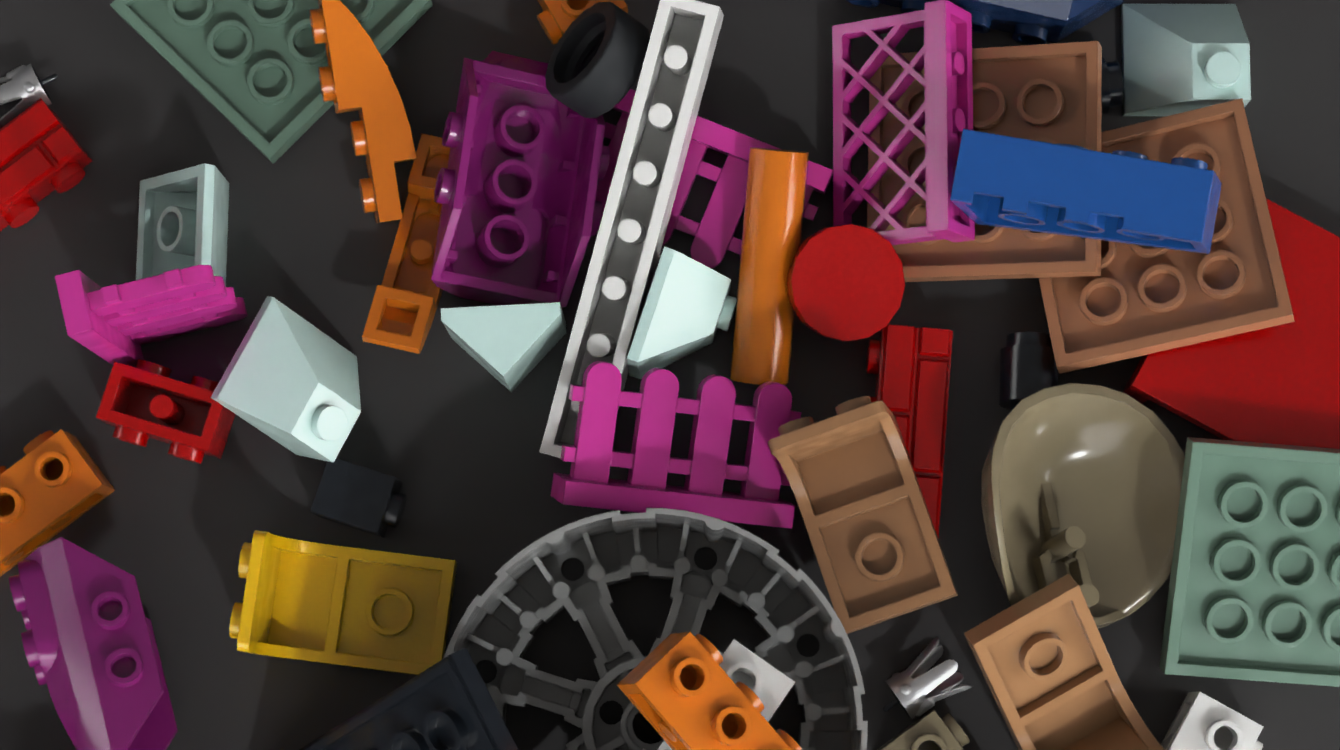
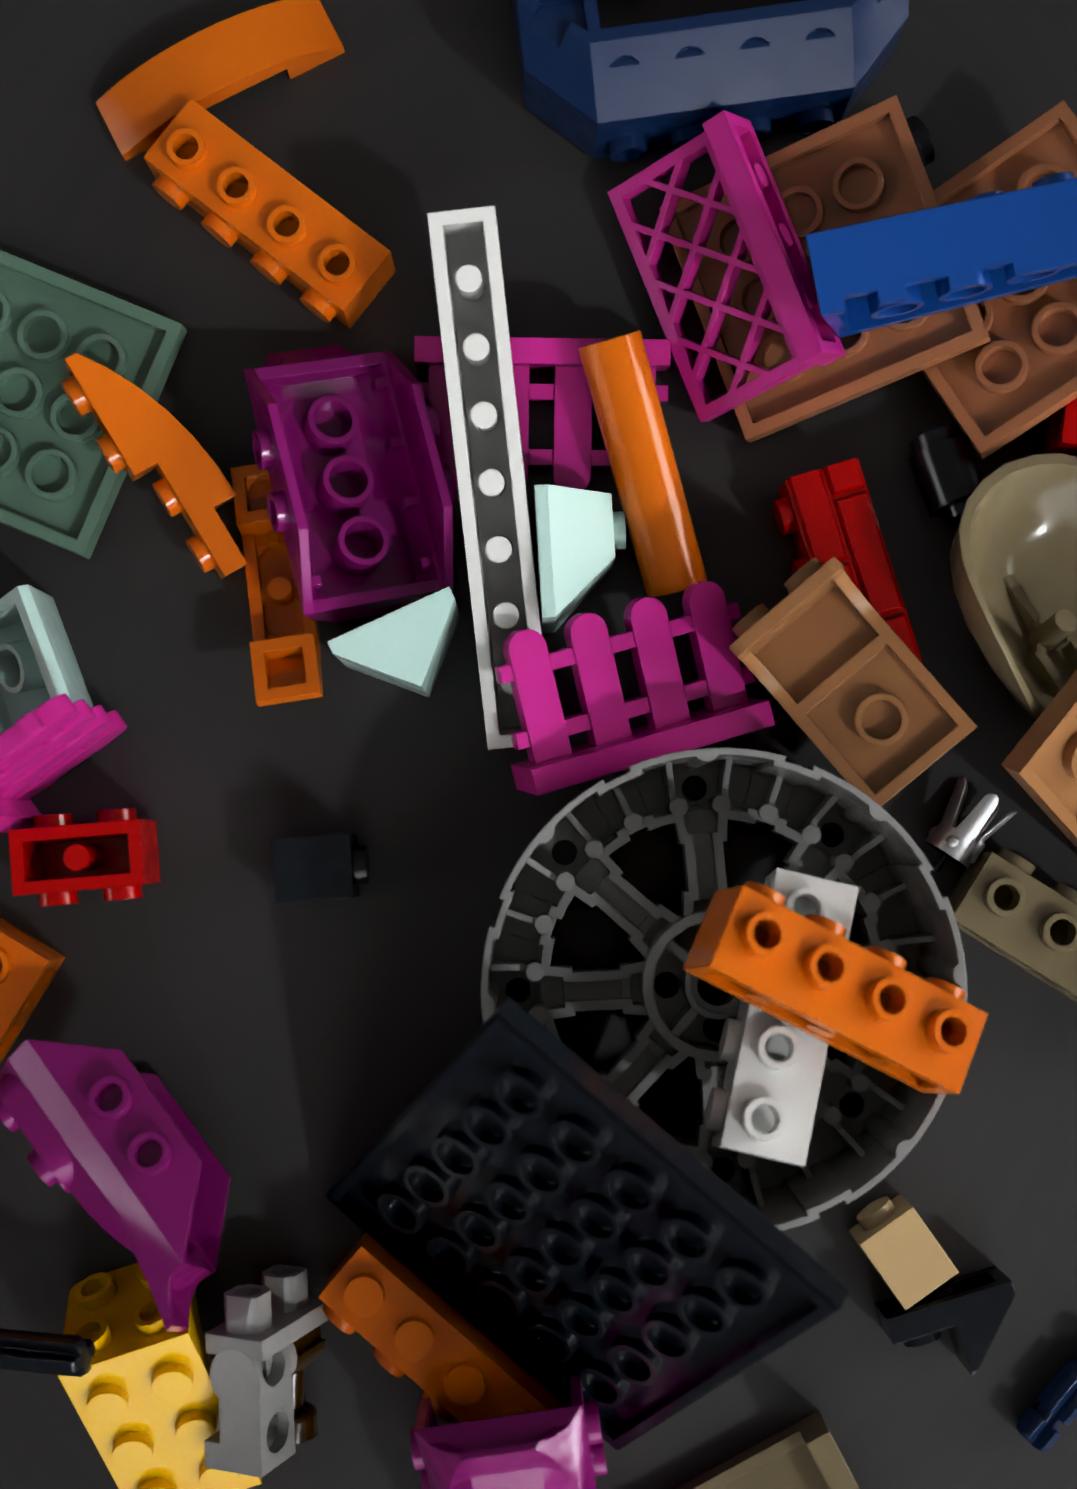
camera: 25 degrees left, 5 degrees up
(293, 383) = (203, 778): light aqua slope -> none
(342, 604) = (347, 984): yellow bracket -> none
(597, 60) = (384, 316): black tyre -> none
(846, 282) = (731, 450): red tile -> none
(1182, 57) = (978, 86): light aqua slope -> none

